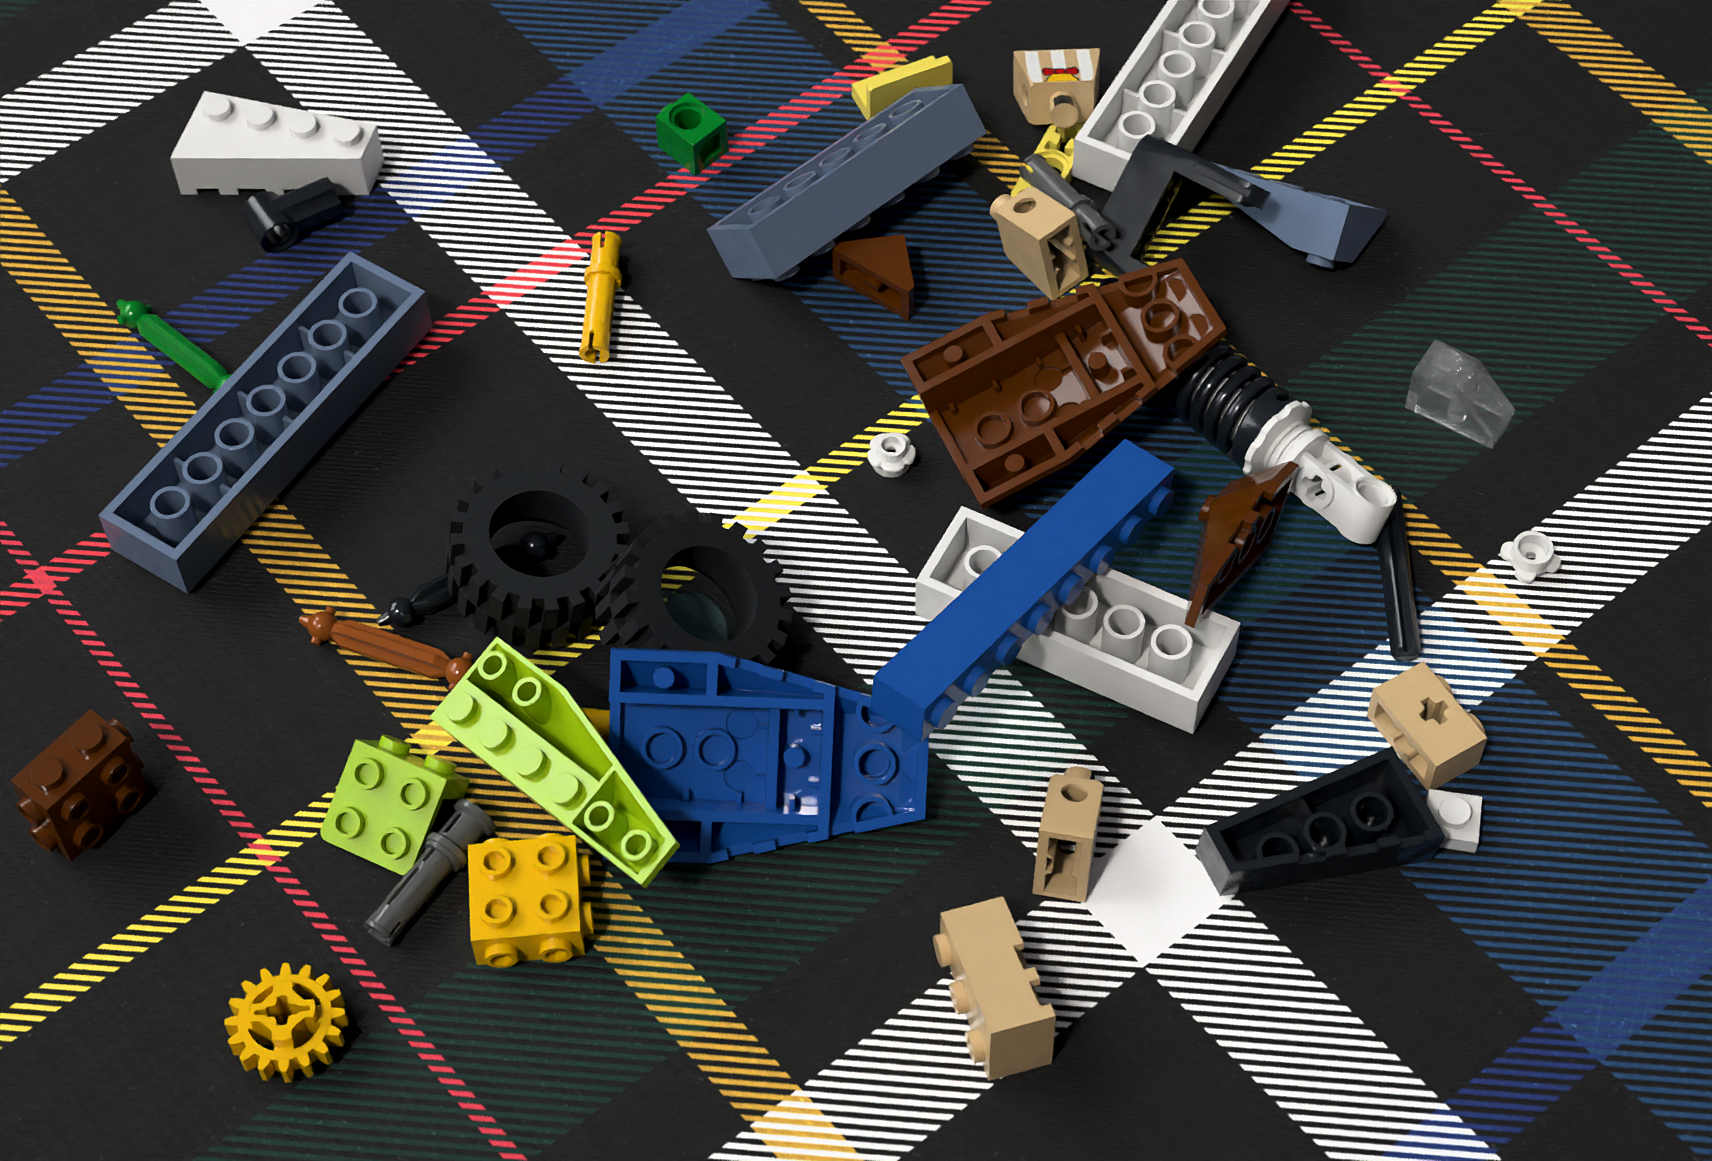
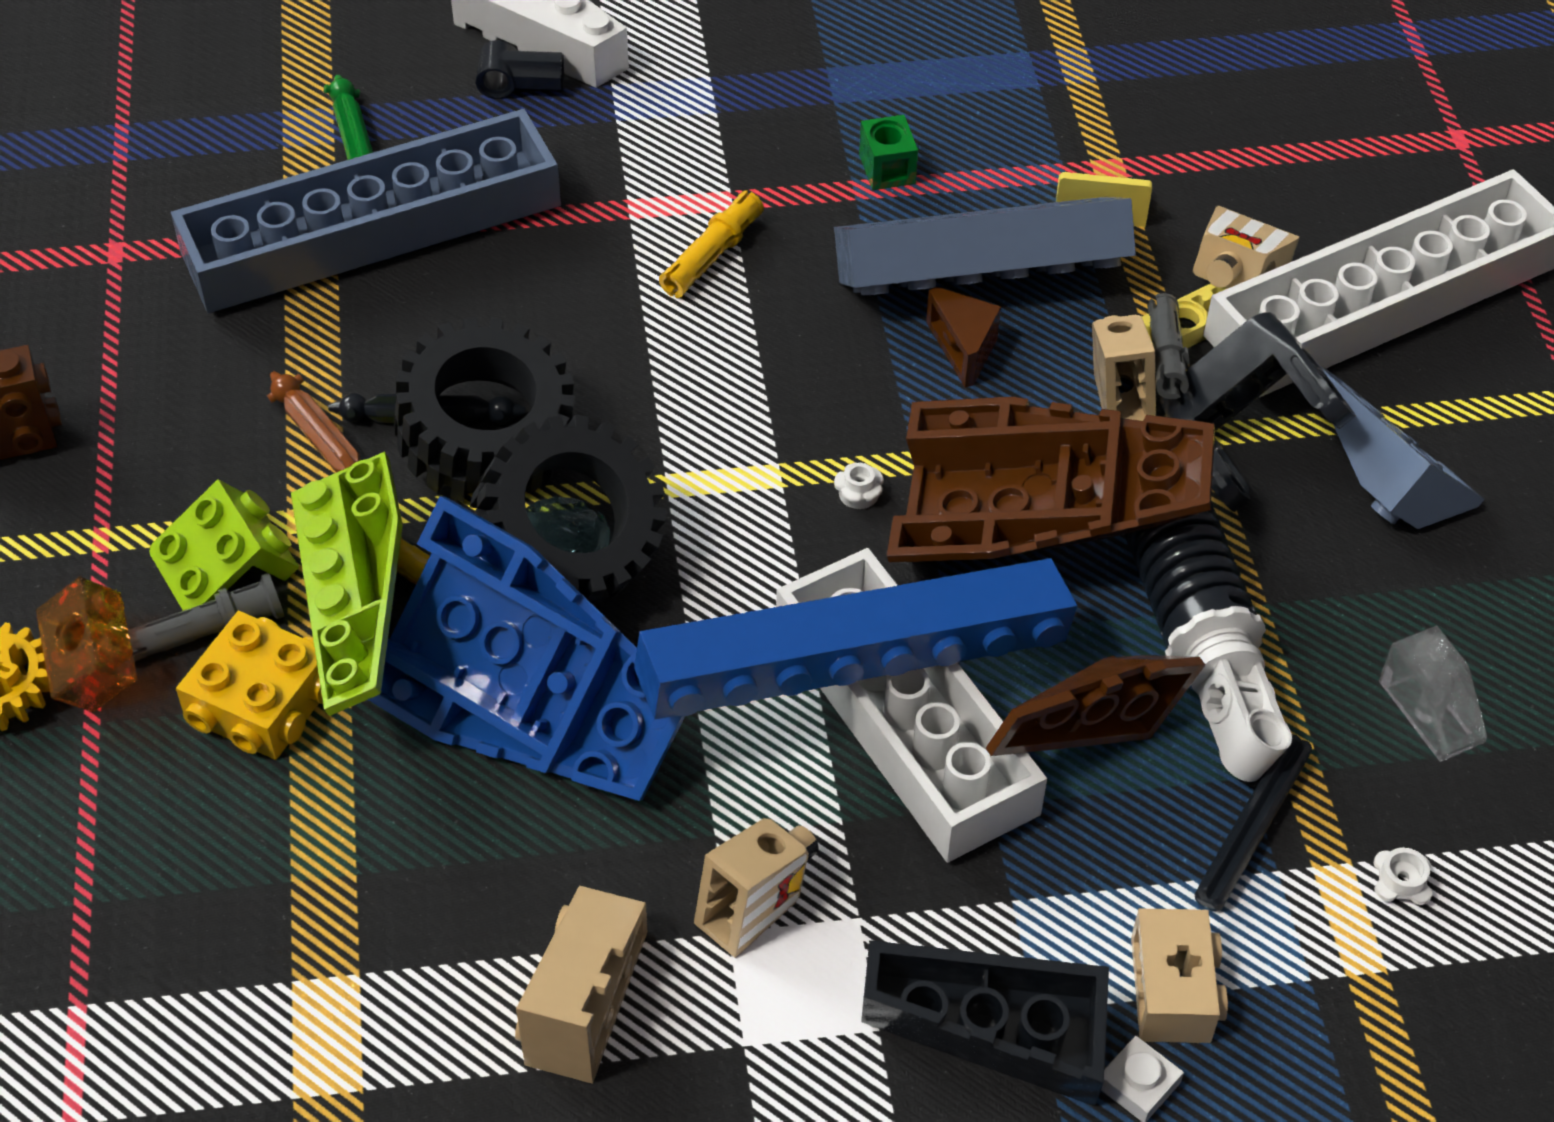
camera: 30 degrees right, 5 degrees down
(327, 943) = (86, 644): none -> clear orange brick

